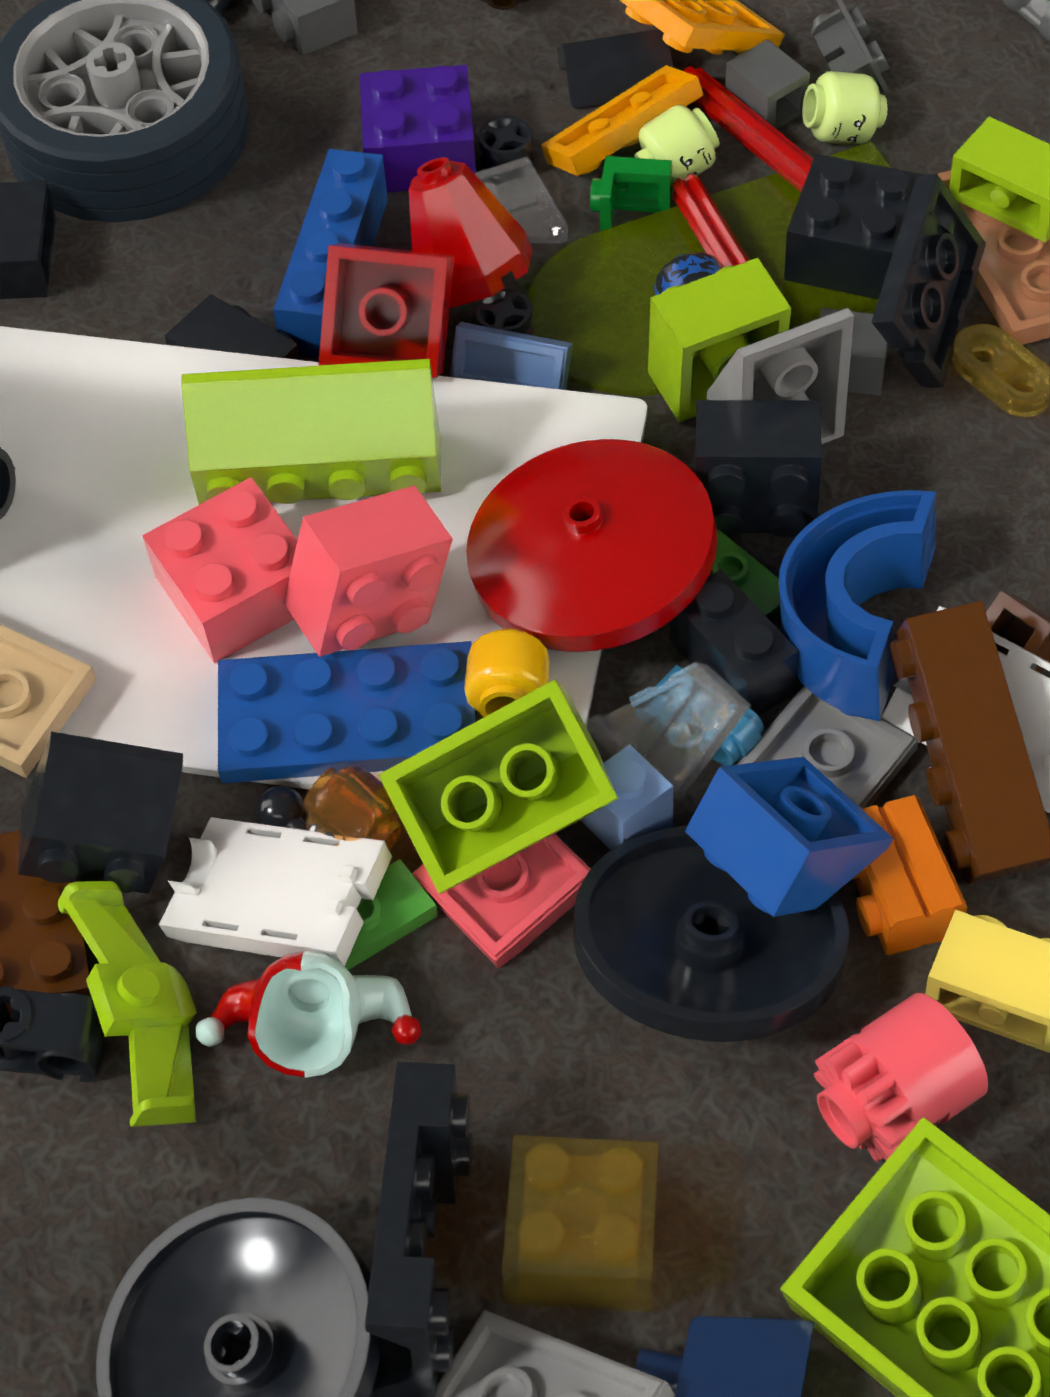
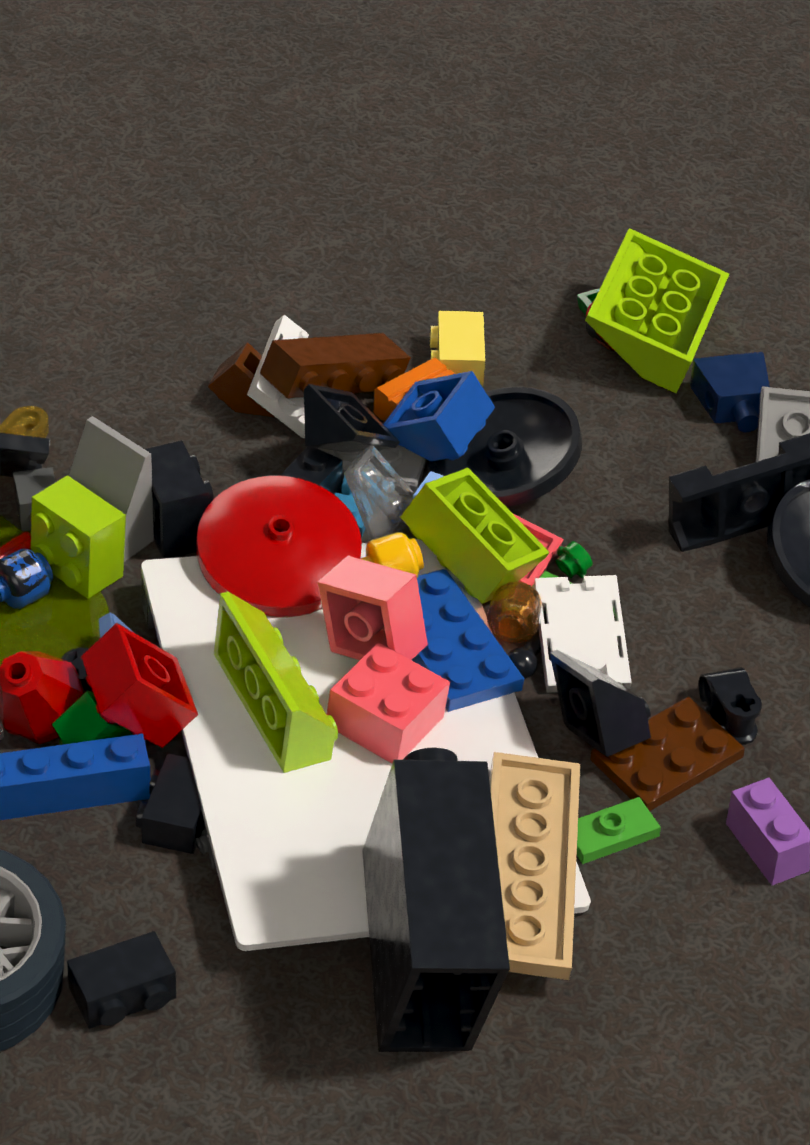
camera: 120 degrees left, 10 degrees down
(137, 999) = (694, 659): lime plate -> none
(309, 1013) = (647, 596): light aqua piece -> none
(441, 955) = (573, 560): none -> green plate
(581, 1223) = (689, 443): clear yellow brick -> none
(799, 683) = (342, 422): none -> black slope
(834, 568) = (241, 454): blue brick -> none
(896, 1072) = (545, 361): coral gear -> none

